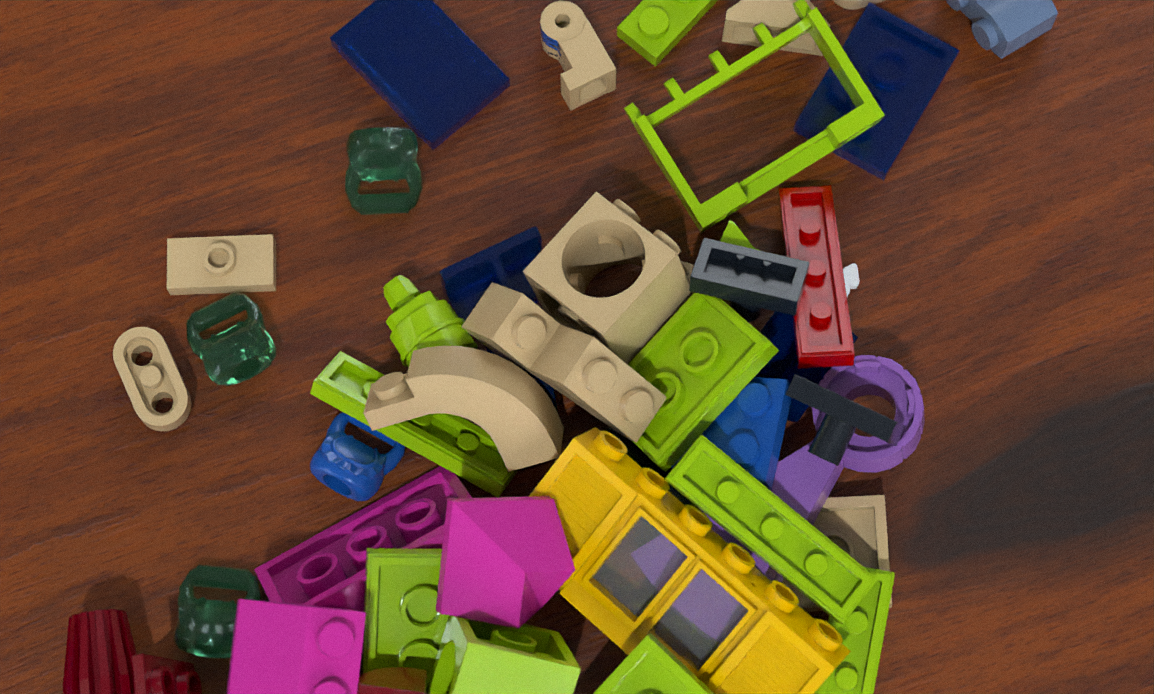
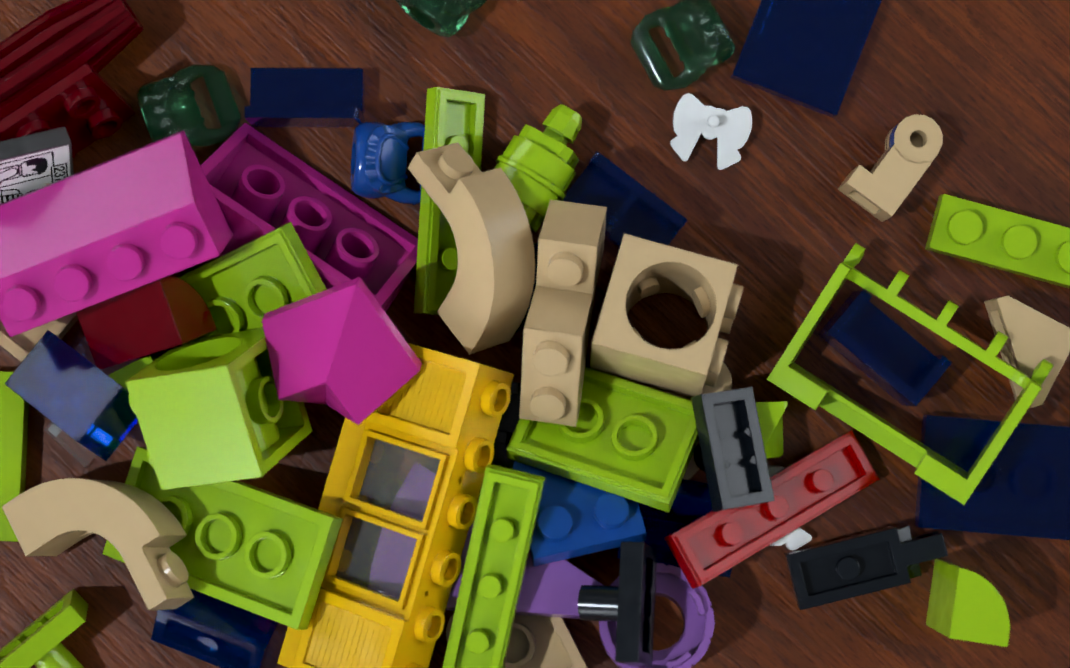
camera: 60 degrees right, 15 degrees up
(262, 502) = (306, 97): none -> clear blue panel
(454, 192) = (729, 127): none -> white piece
(724, 132) = (883, 350): none -> clear blue panel
(896, 234) = (860, 564): none -> black hinge
(968, 156) = (966, 606): none -> lime brick

